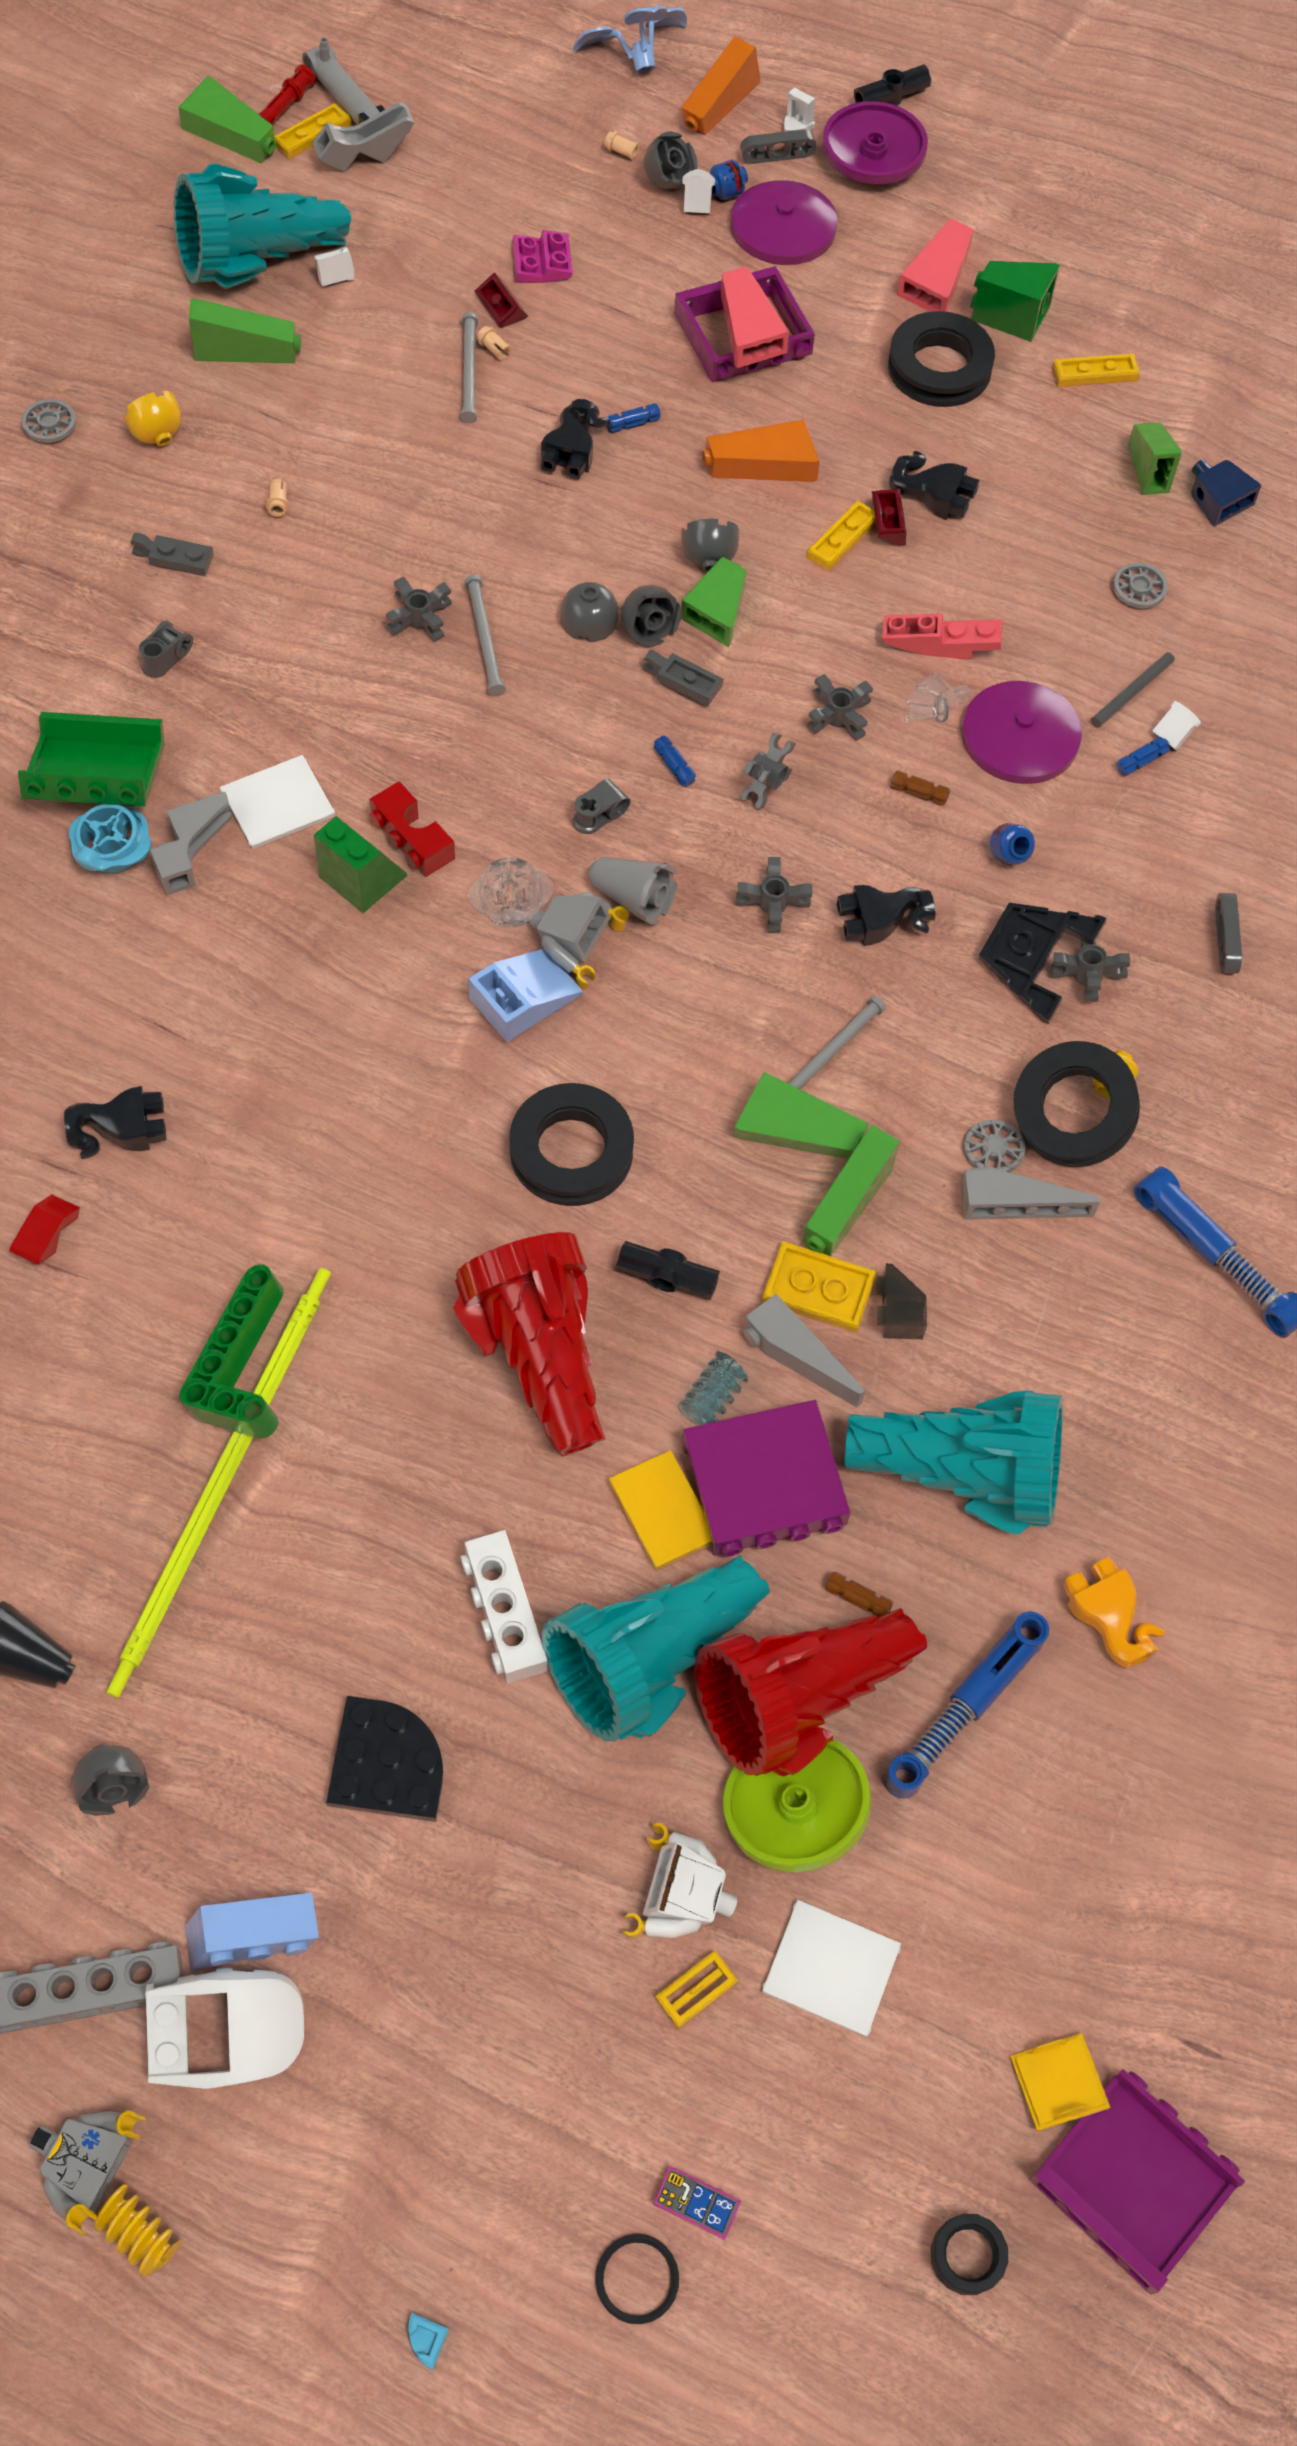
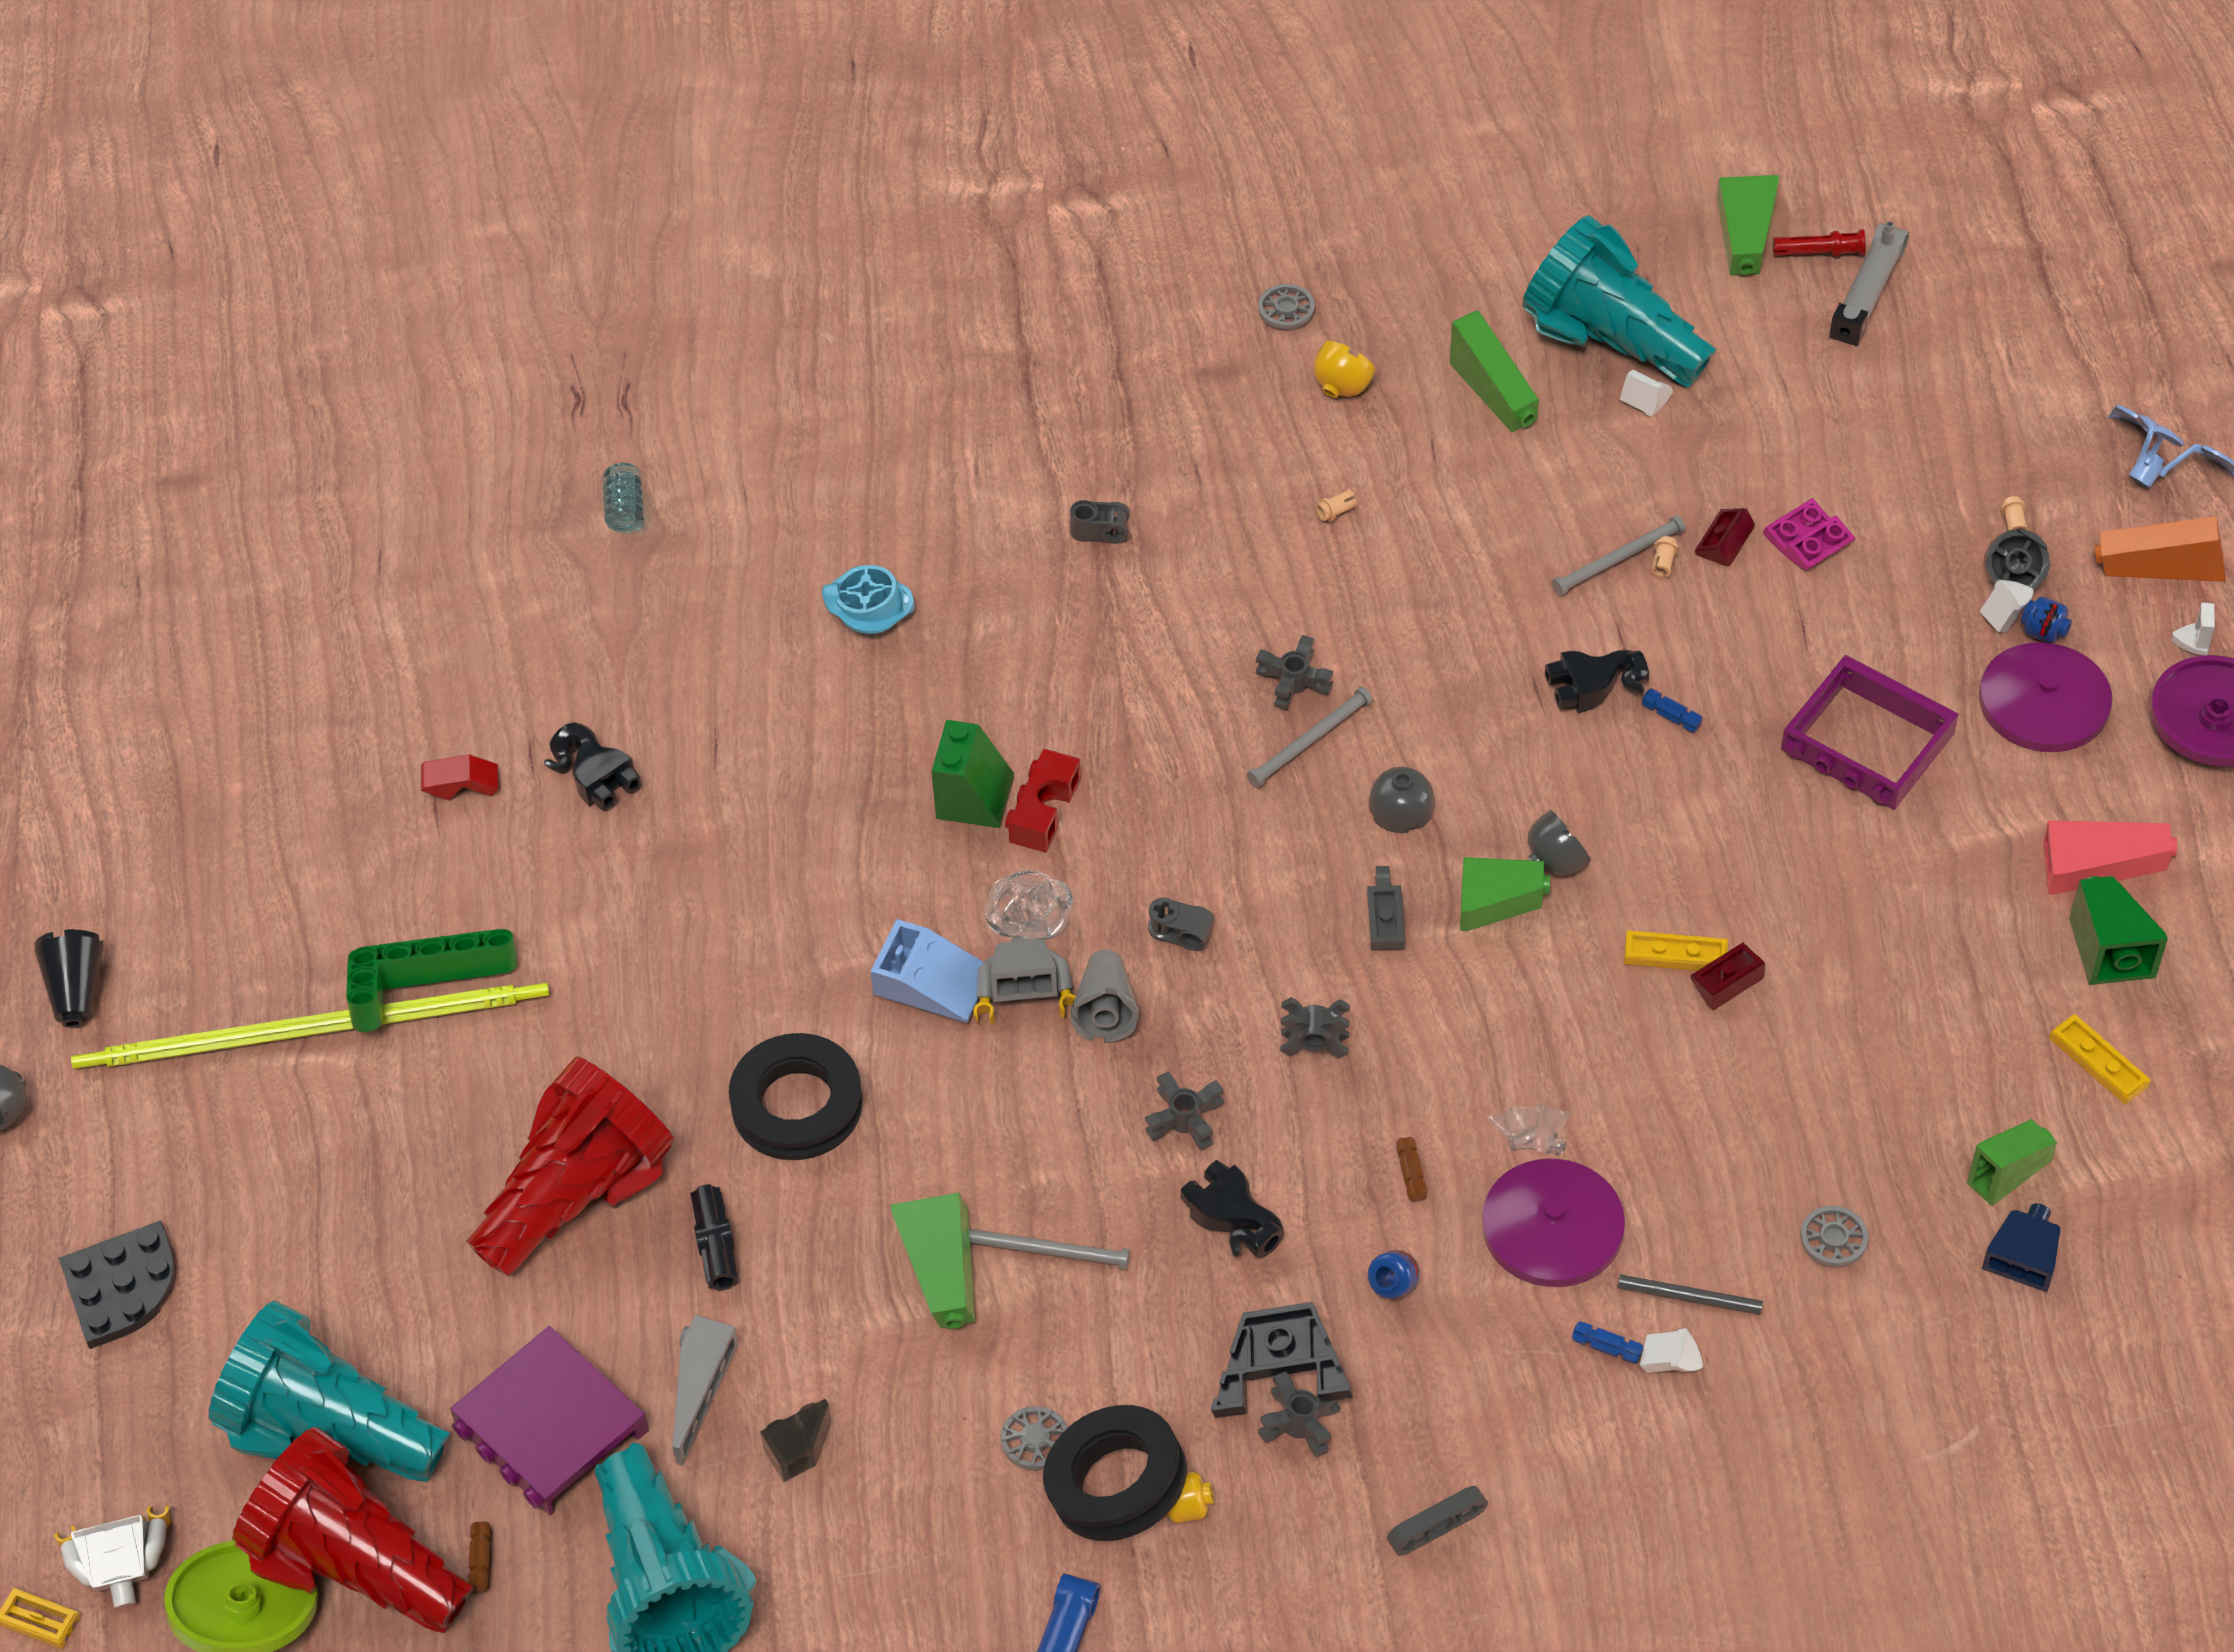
camera: 65 degrees right, 10 degrees down
(93, 759) = (935, 542): green panel -> none
(173, 553) = (1213, 472): dark grey plate -> none
(192, 828) = (920, 648): light grey arch -> none
(277, 802) = (1006, 693): white piece -> none
(300, 136) = (1801, 286): yellow tile -> none
(374, 137) = (1822, 329): light grey arch -> none
(496, 1553) = (325, 1282): white brick -> none
(650, 614) = (1428, 844): dark grey cylinder -> none
(662, 1510) = (470, 1355): yellow tile -> none
(674, 761) = (1283, 956): blue axle -> none
(713, 1389) = (611, 1335): clear light blue piece -> none
(751, 319) = (1854, 725): coral slope -> none
(760, 155) = (2123, 626): dark grey beam -> none
(763, 453) = (1716, 833): orange slope -> none
(820, 1286) = (780, 1366): yellow tile -> none
(840, 707) = (1450, 1063): dark grey pin -> none
(851, 1191) = (888, 1336): bright green slope -> none
(934, 637) = (1608, 1091): coral slope -> none
(935, 486) = (1802, 996): black hips -> none
(944, 330) = (1979, 954): black tyre -> none
(1014, 1196) = (973, 1460): light grey slope -> none

